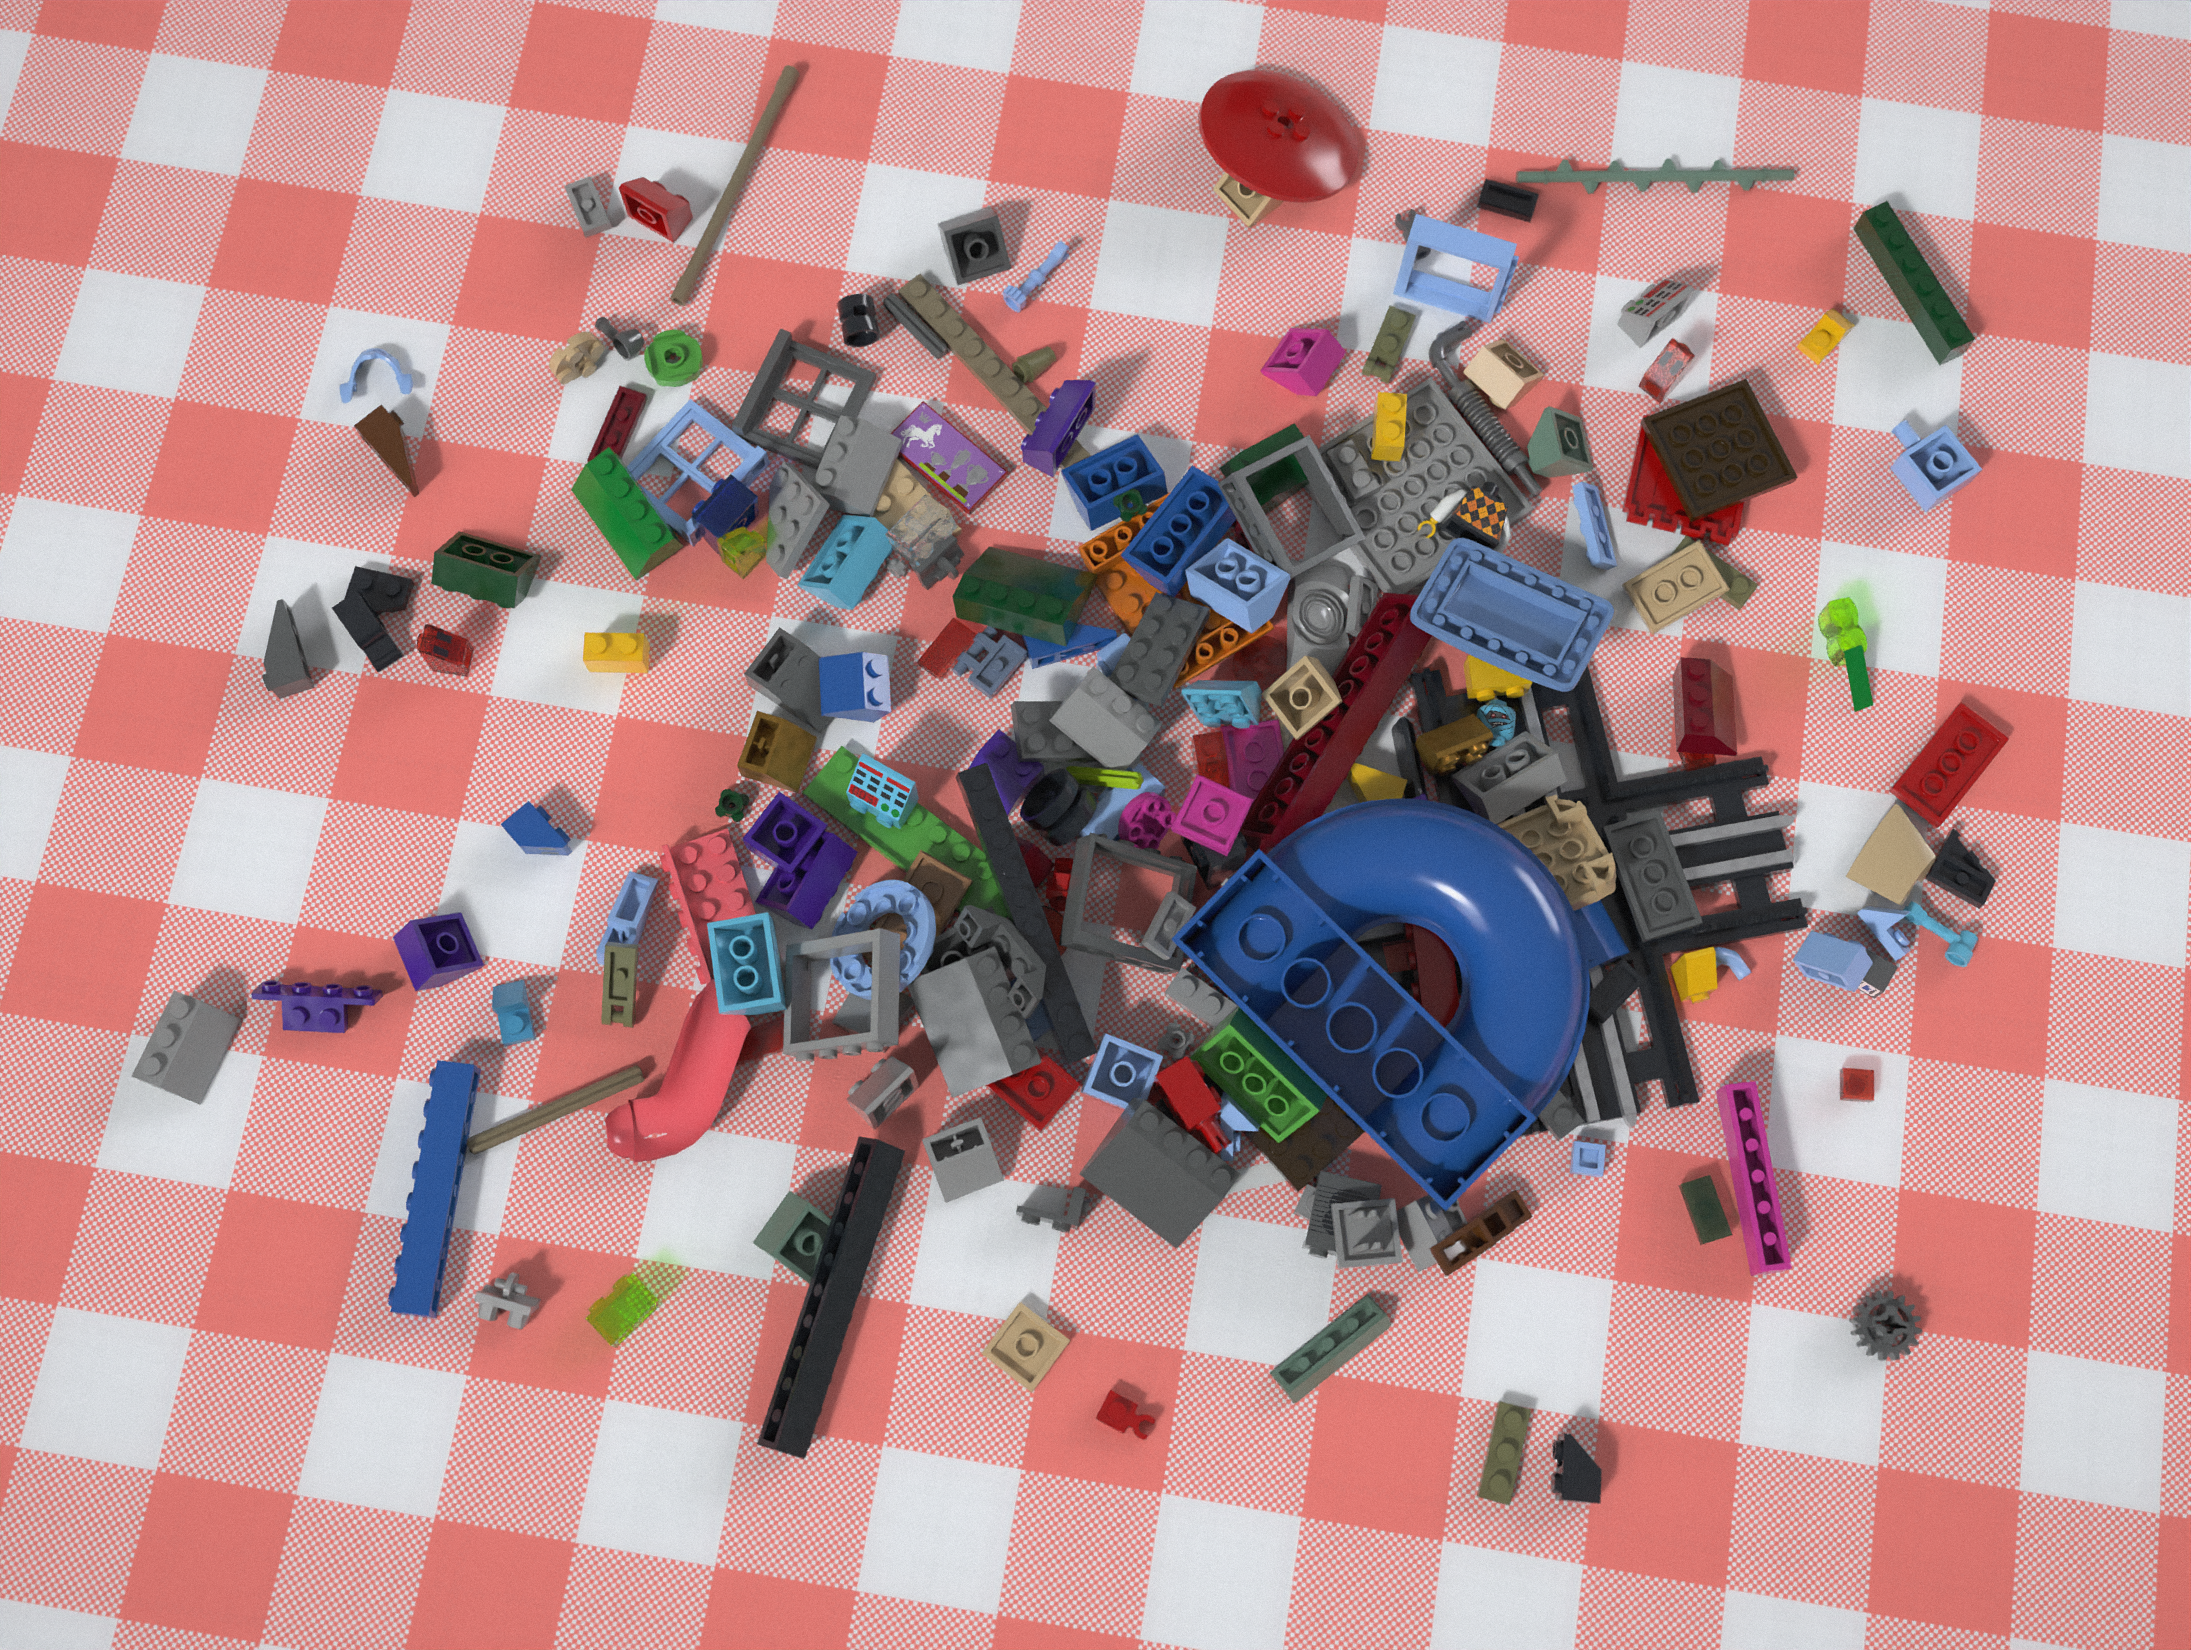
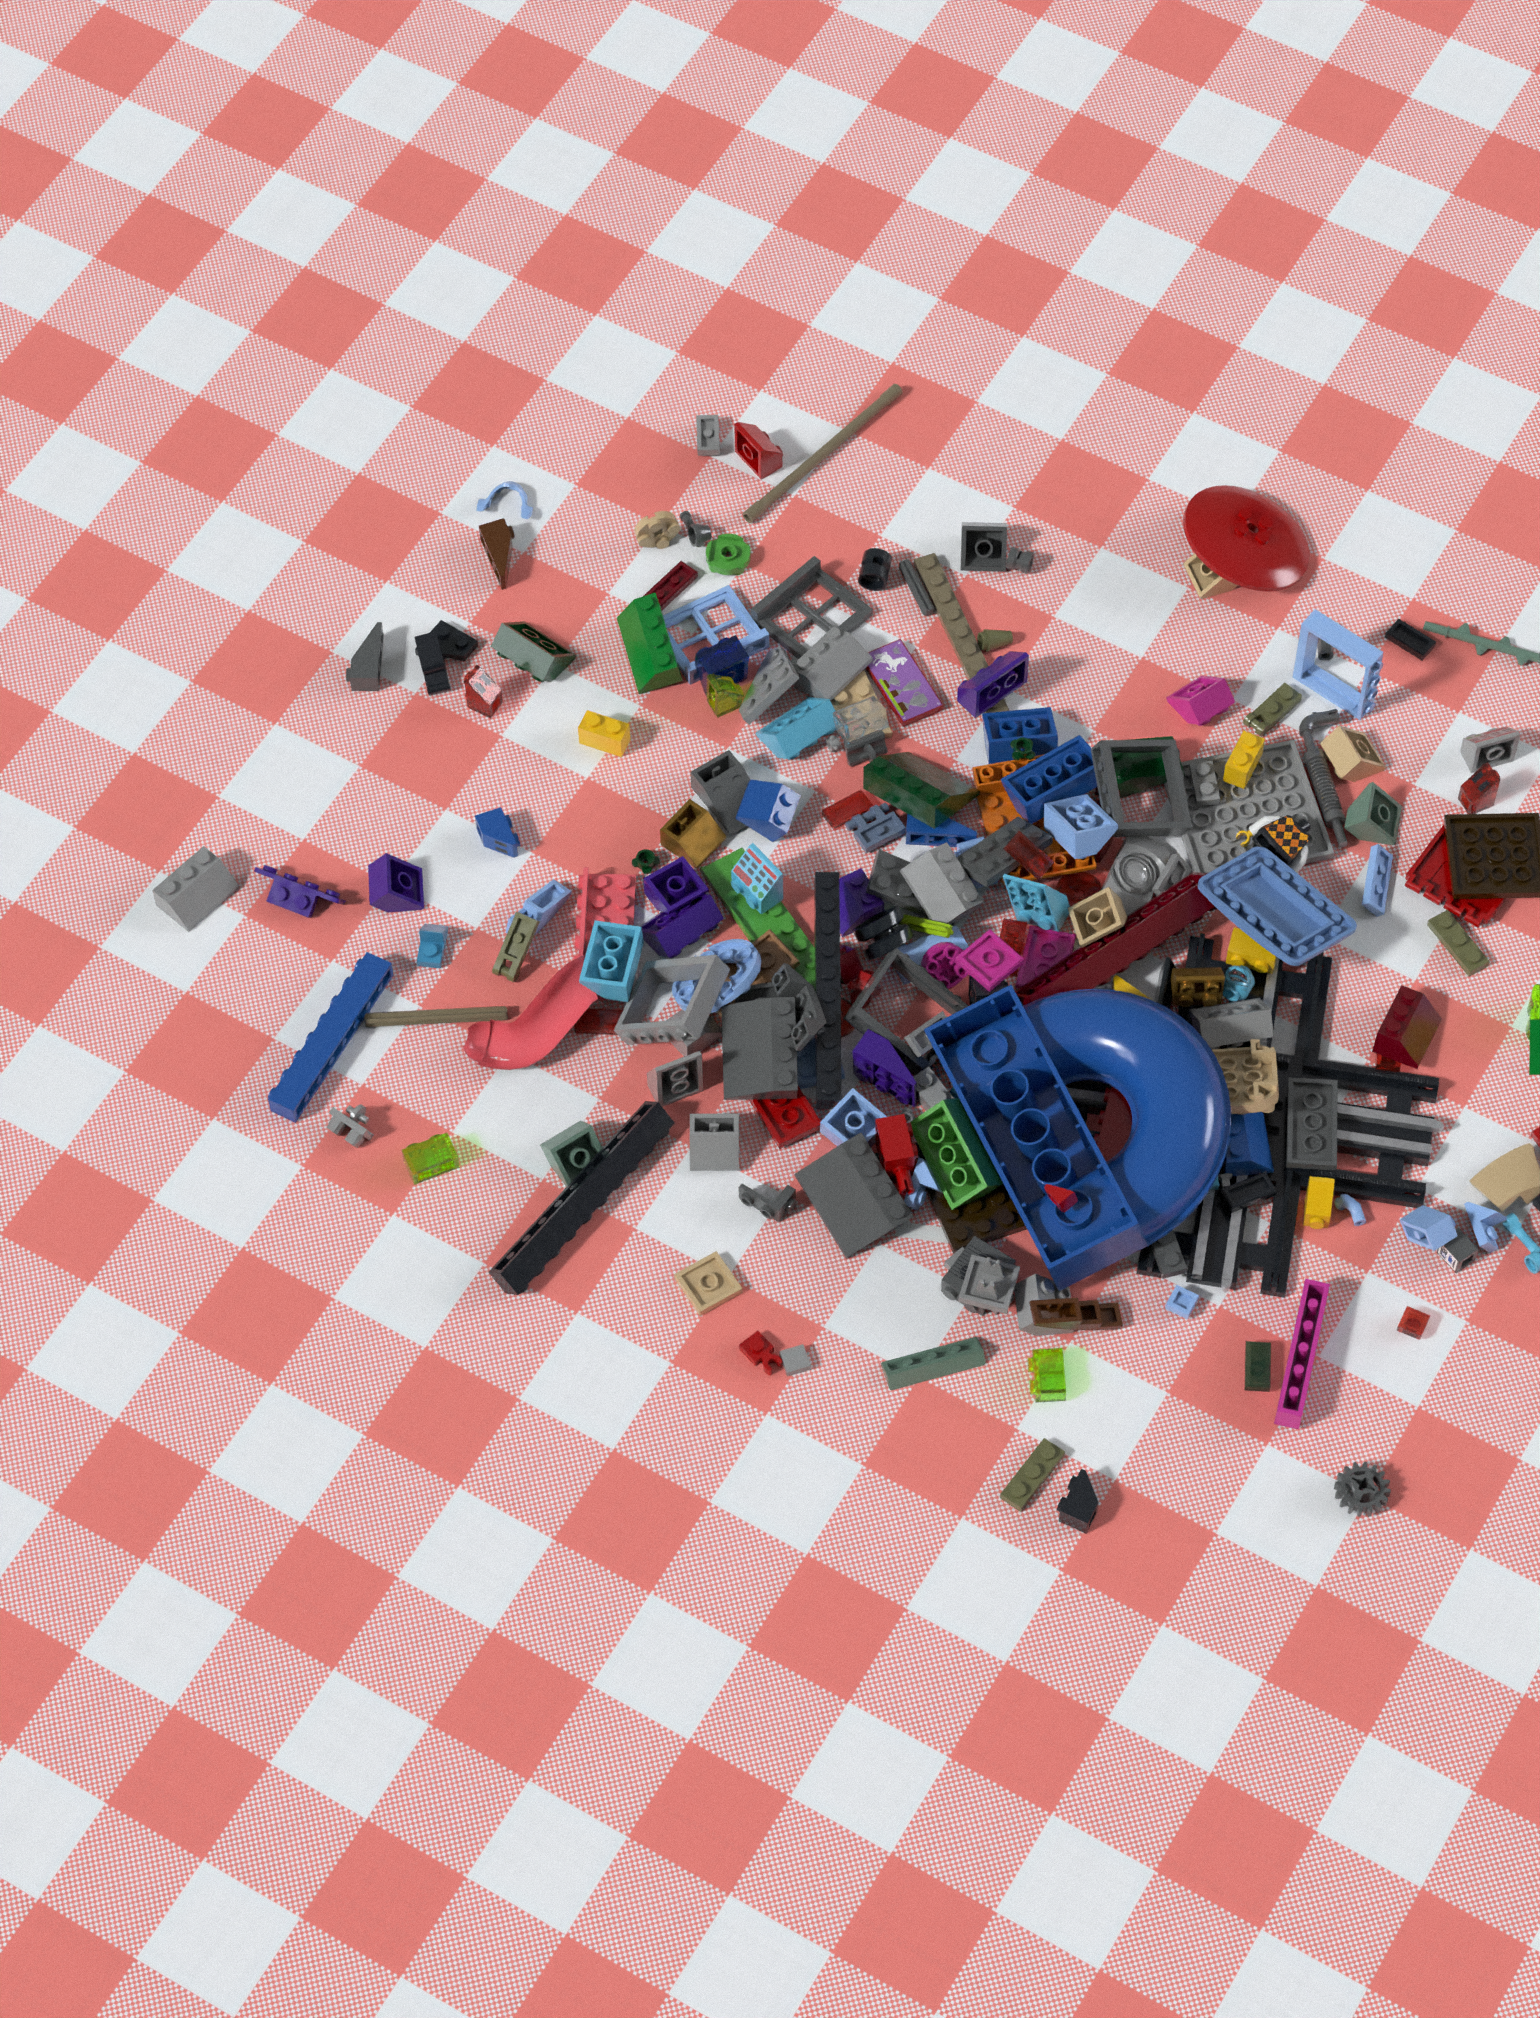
camera: 25 degrees right, 15 degrees down
(1016, 297) = (999, 590): light blue piece -> none
(1024, 249) = (1020, 560): none -> dark grey wheel
(1123, 982) = (880, 1065): none -> dark purple slope
(1169, 1410) = (795, 1360): none -> light grey tile
(1194, 646) = (1028, 855): none -> clear red tile
(1430, 1118) = (1061, 1197): none -> red slope
(1473, 1317) = (1048, 1375): none -> clear neon green brick
(1675, 587) = (1422, 941): tan tile -> none

